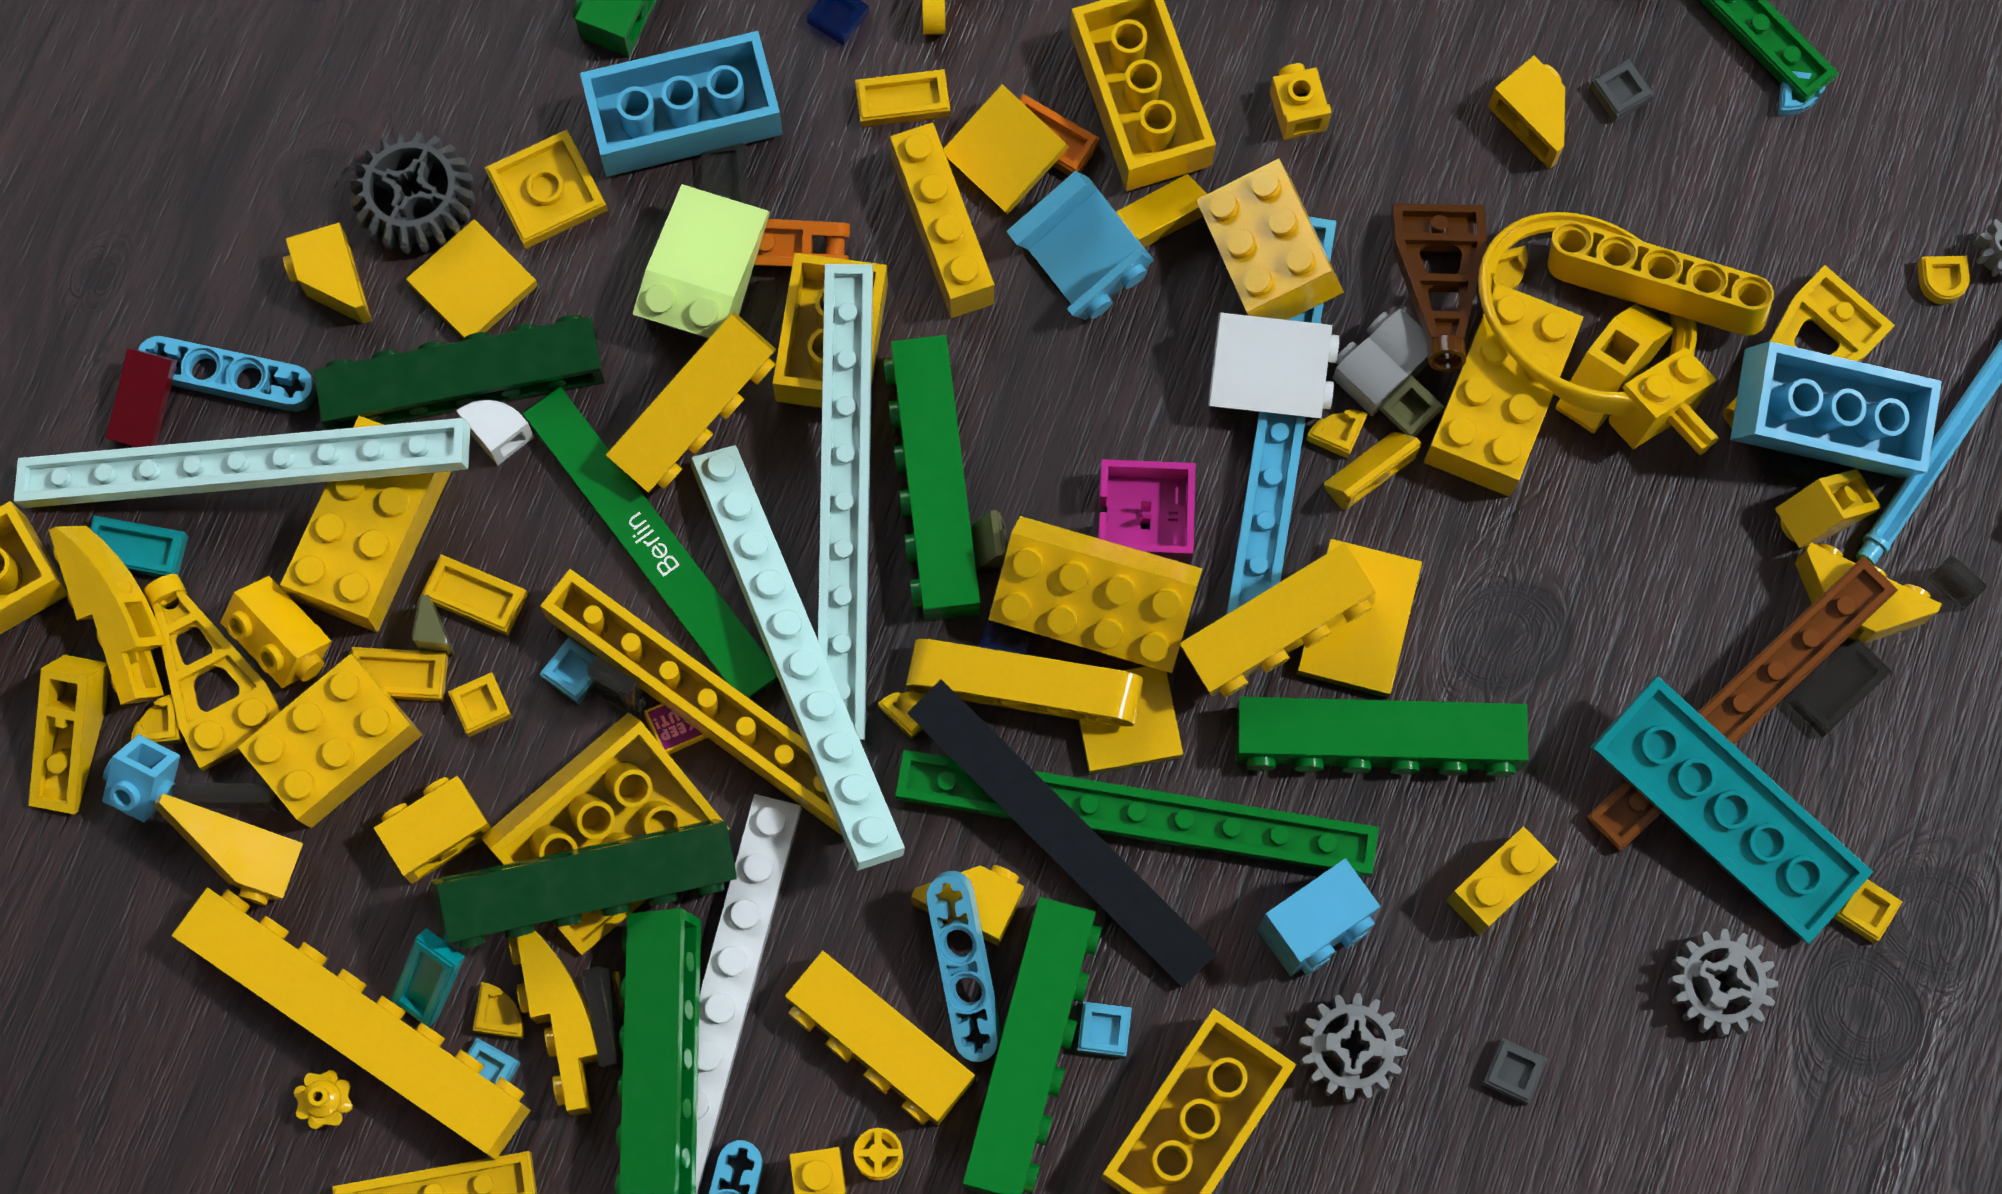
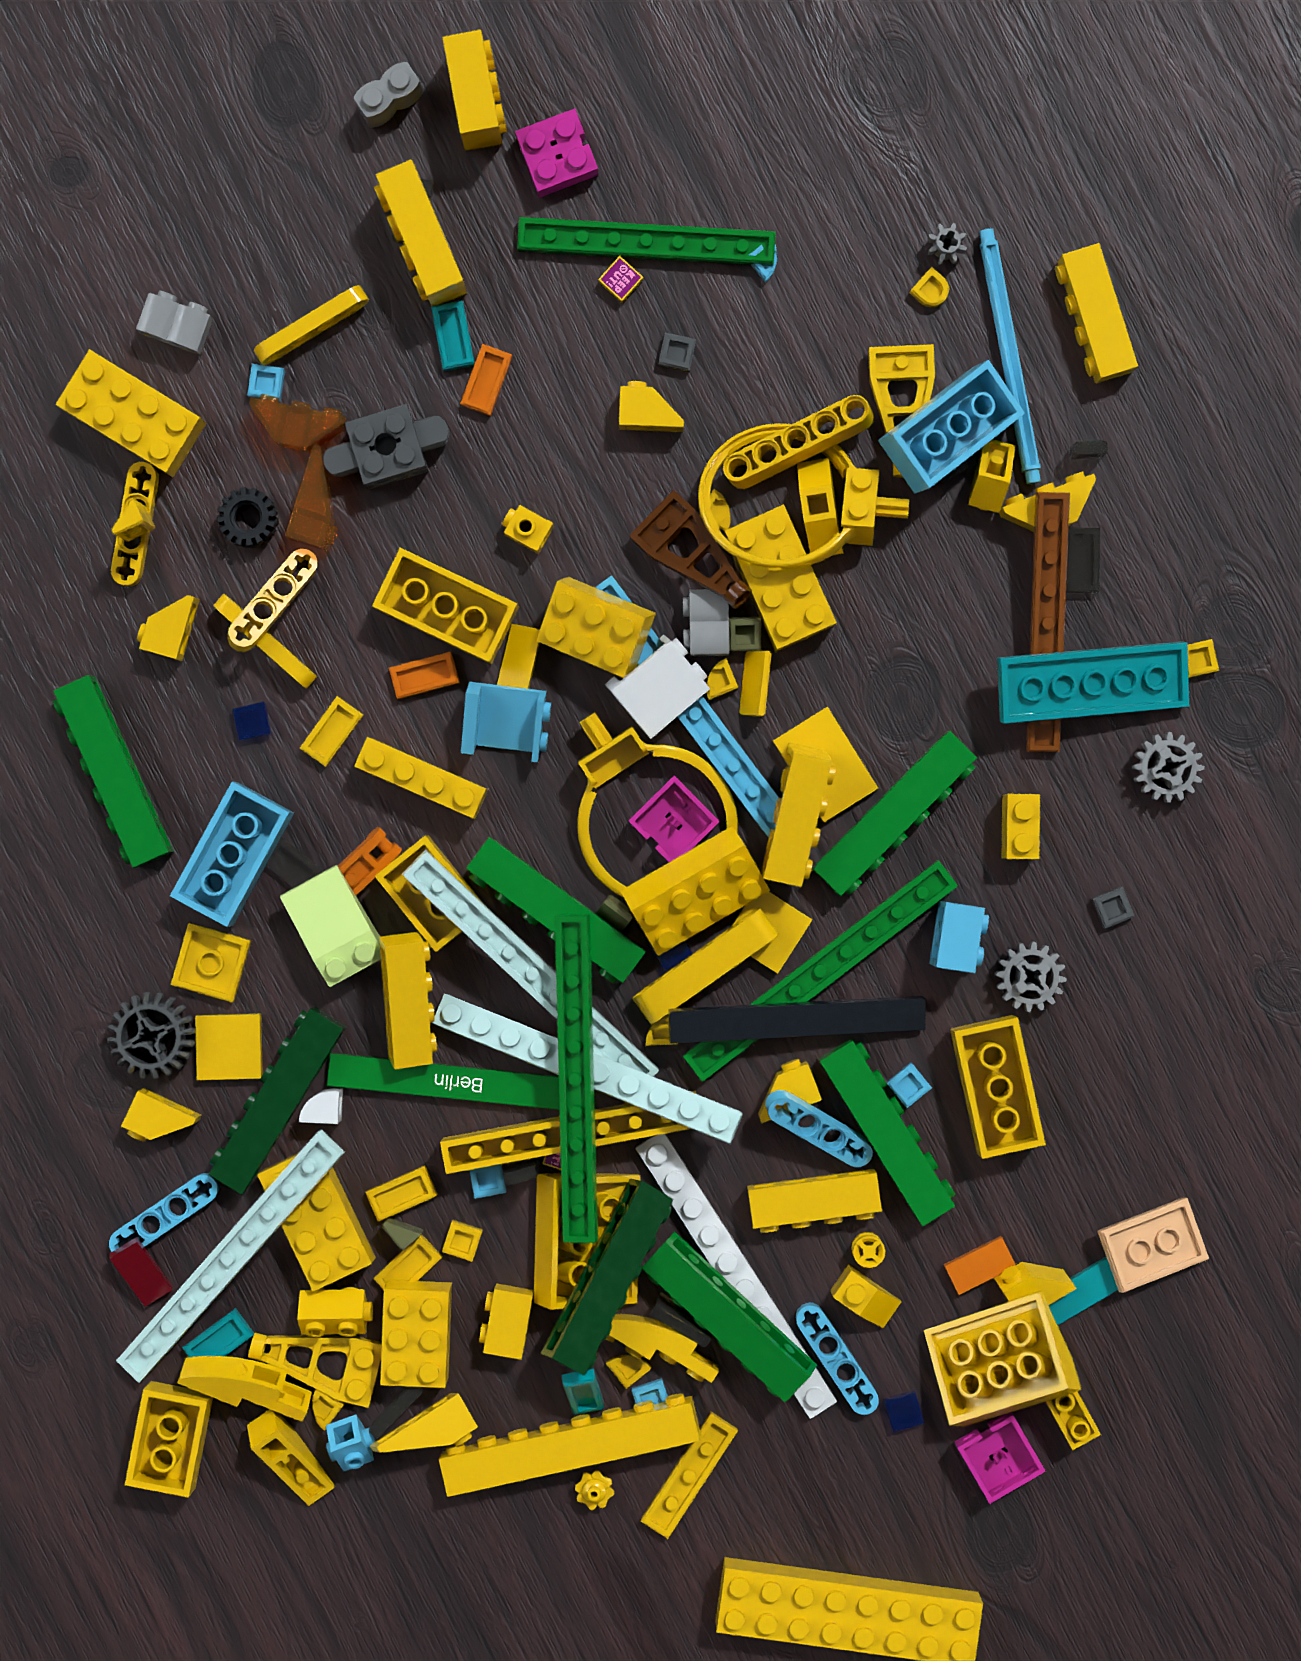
camera: 45 degrees left, 15 degrees up
(772, 642) = (576, 1078): none -> green plate
(1005, 149) = (412, 707): yellow tile -> none
(1156, 390) = (615, 756): none -> yellow brick

